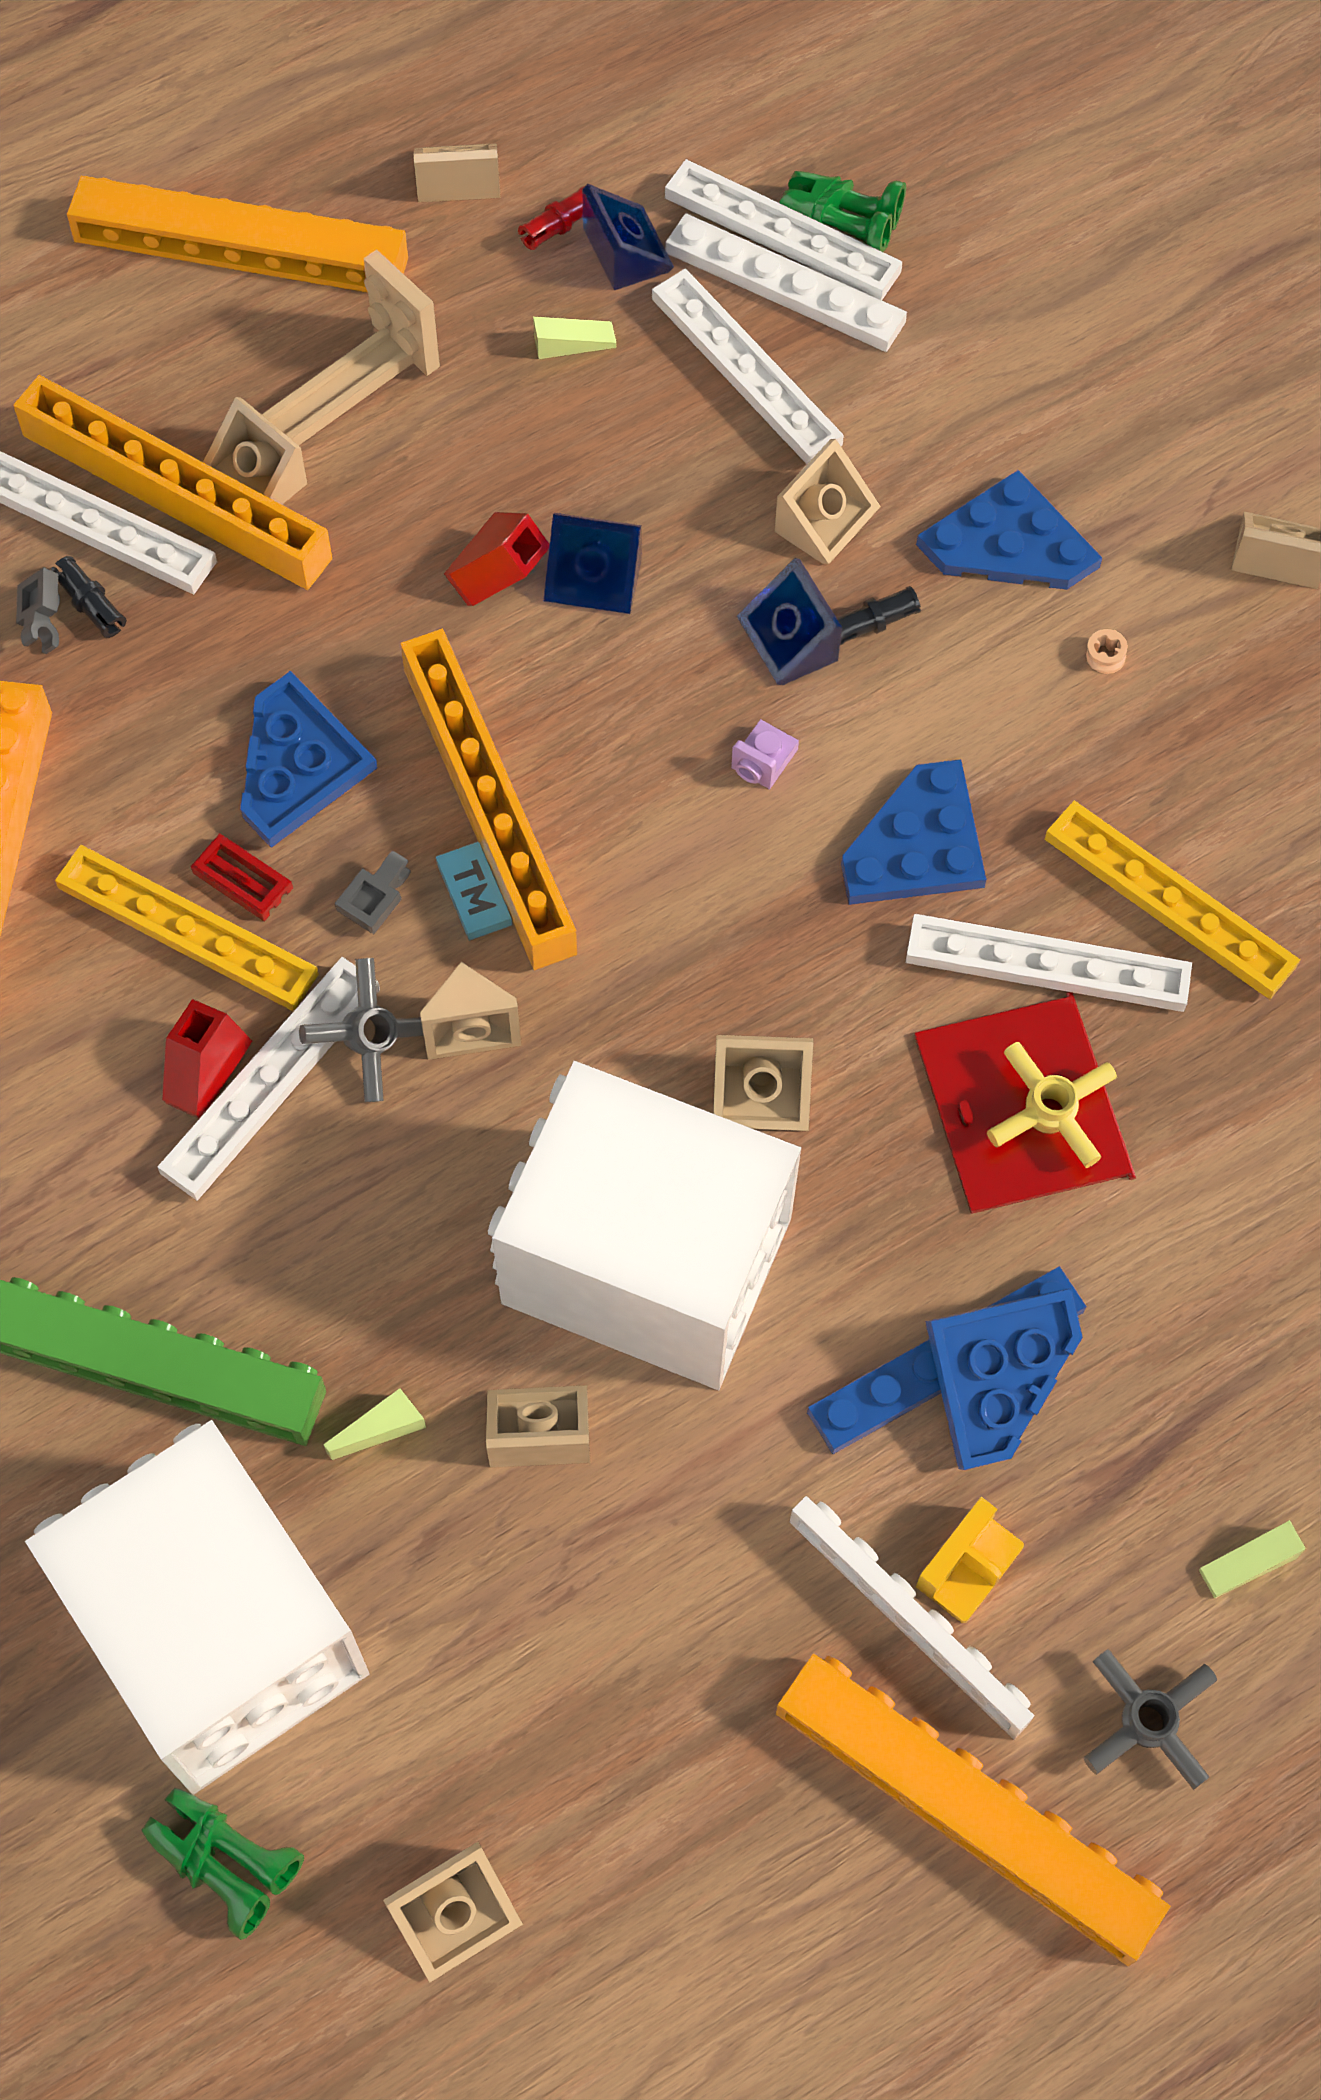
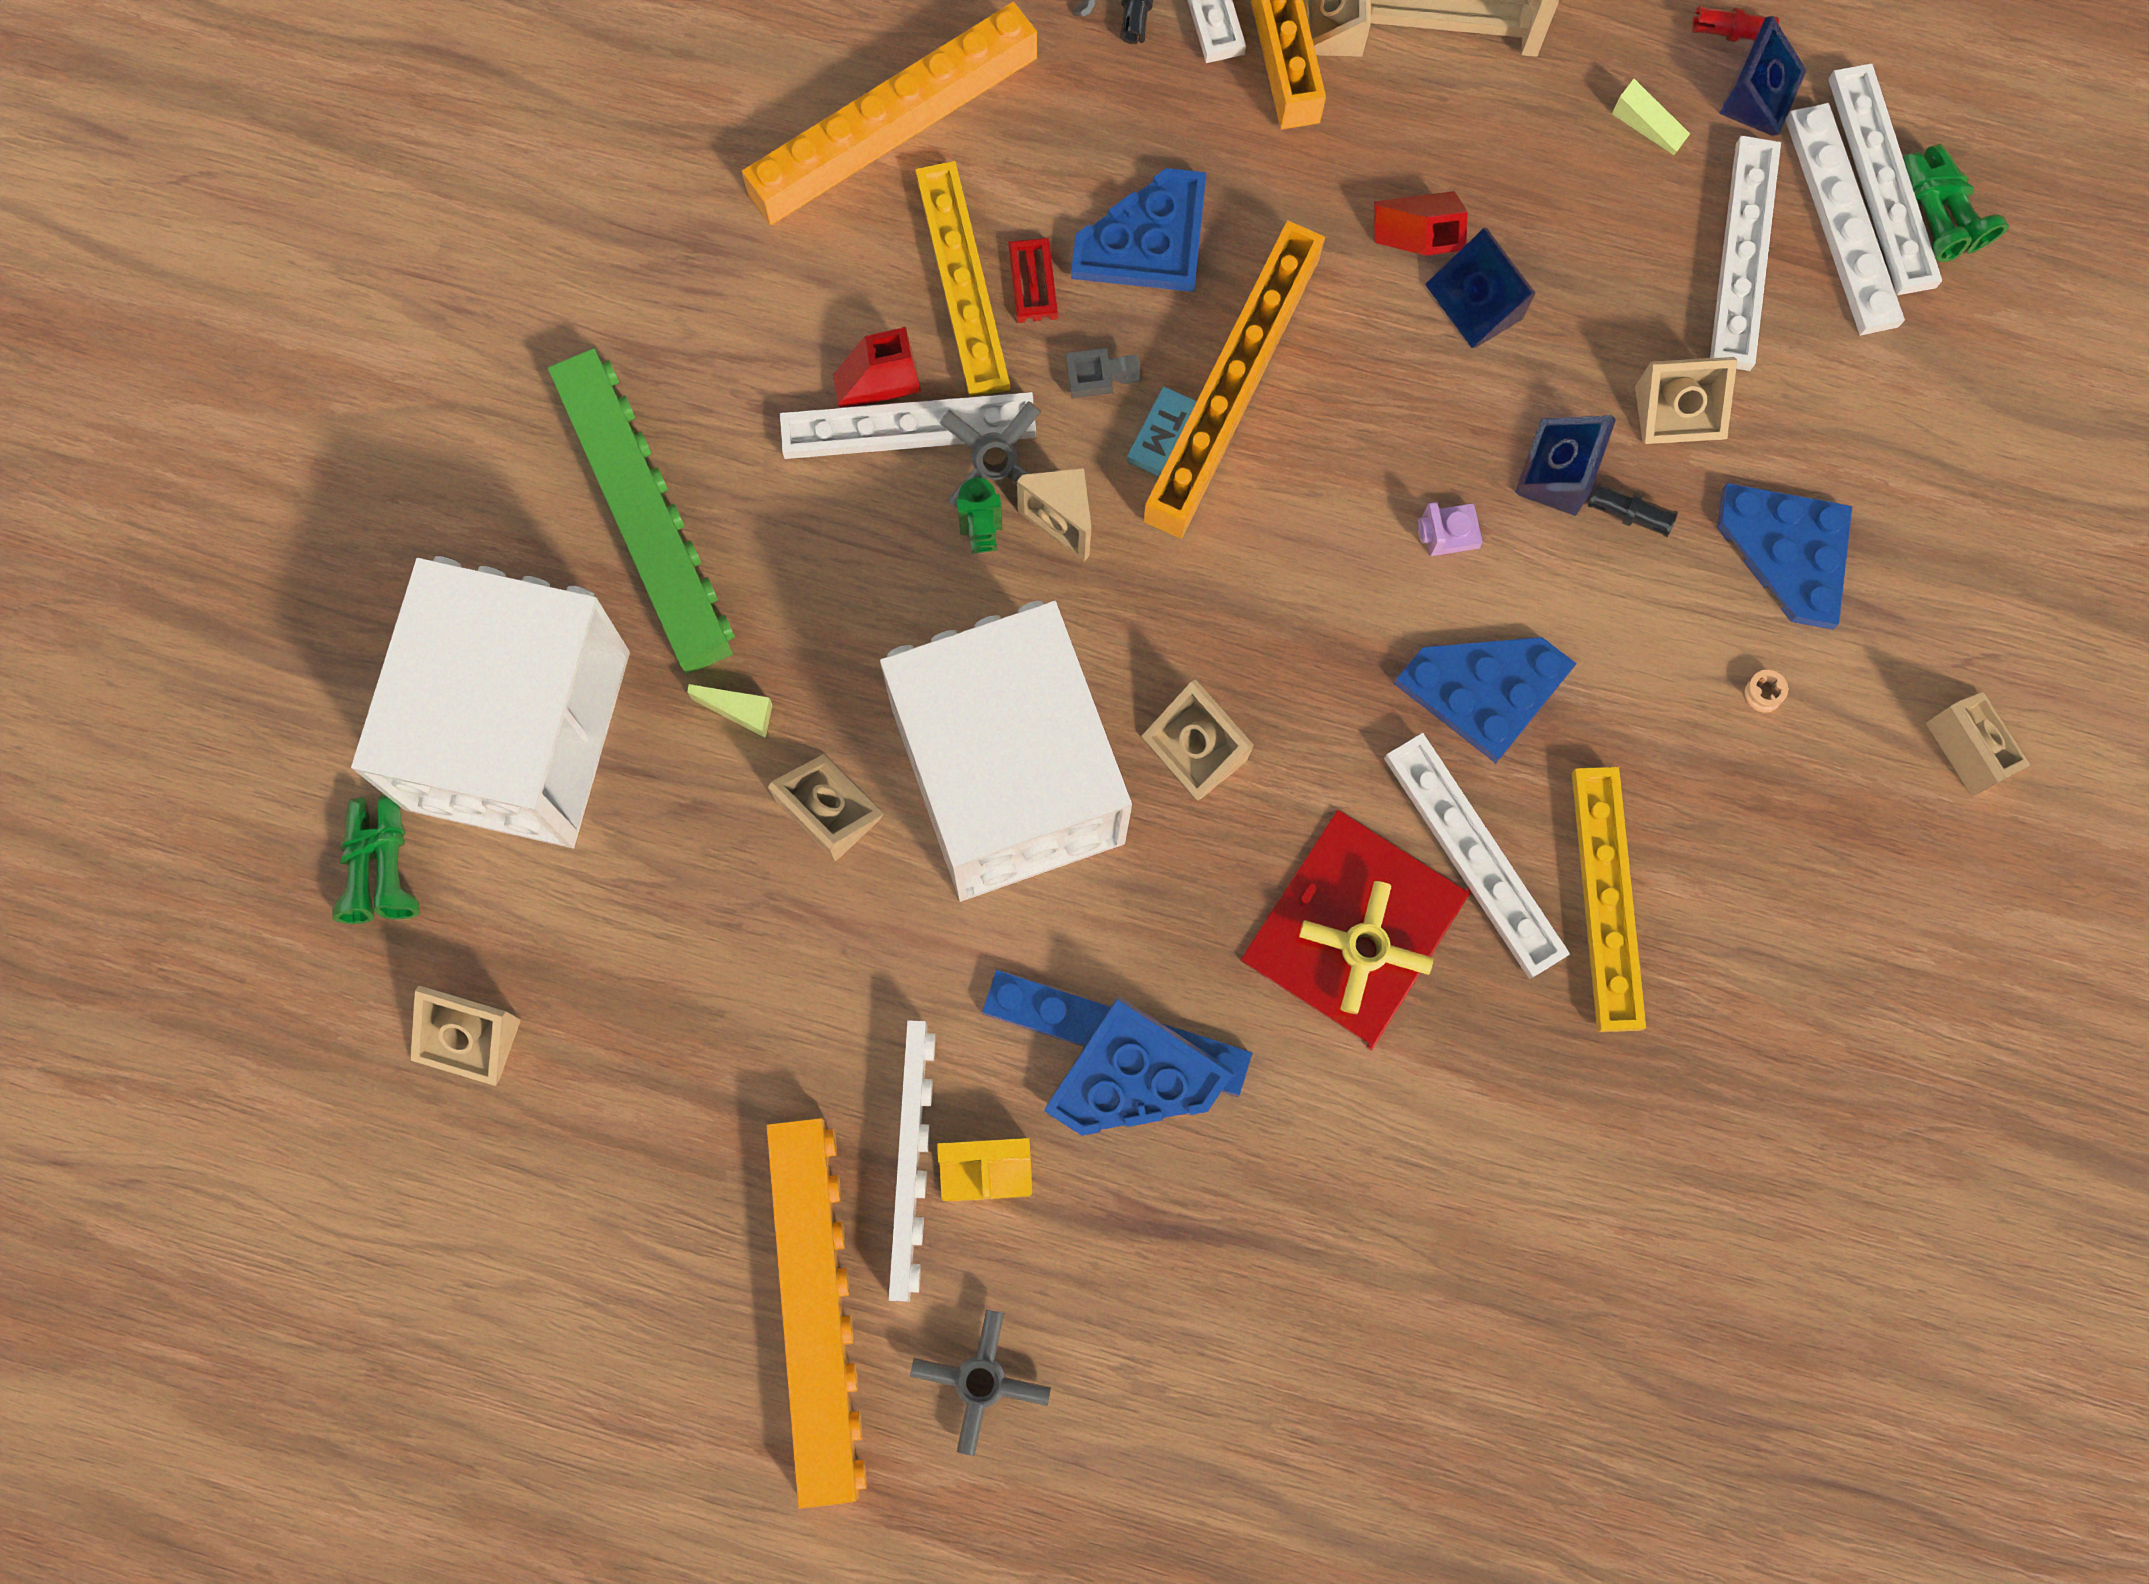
camera: 45 degrees right, 10 degrees up
(409, 1083) = (979, 514): none -> green hips
(1253, 1559) = (1157, 1360): yellowish green piece -> none

